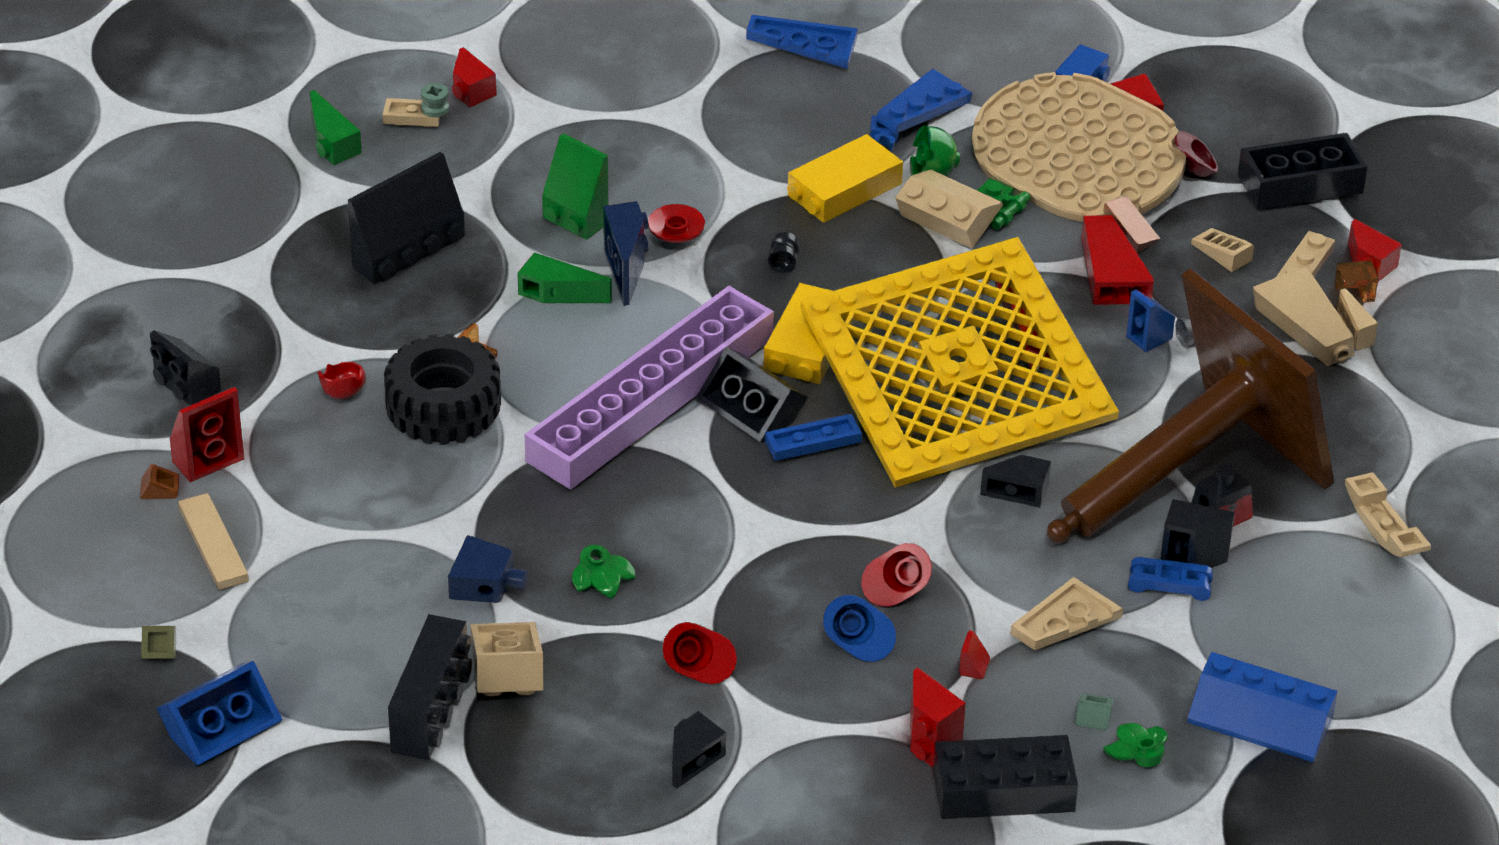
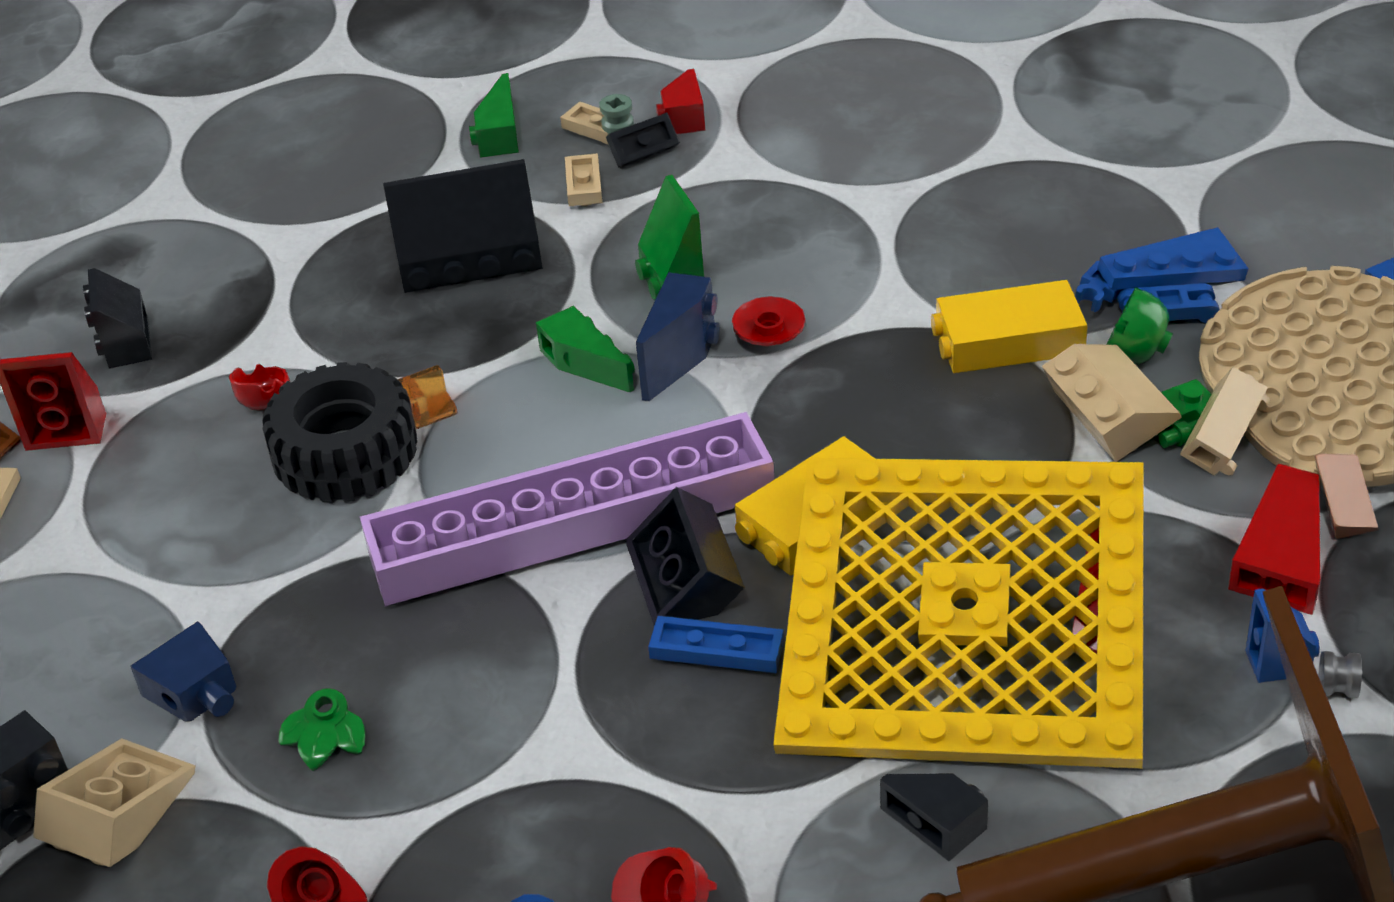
camera: 35 degrees right, 0 degrees up
(457, 165) = (583, 180): none -> tan plate
(463, 115) = (642, 139): none -> black plate
(783, 252) = (867, 392): black wheel -> none
(809, 39) = (1092, 158): blue wing -> none
(950, 122) = (1181, 301): none -> blue plate
(1032, 200) = (1225, 422): none -> tan brick

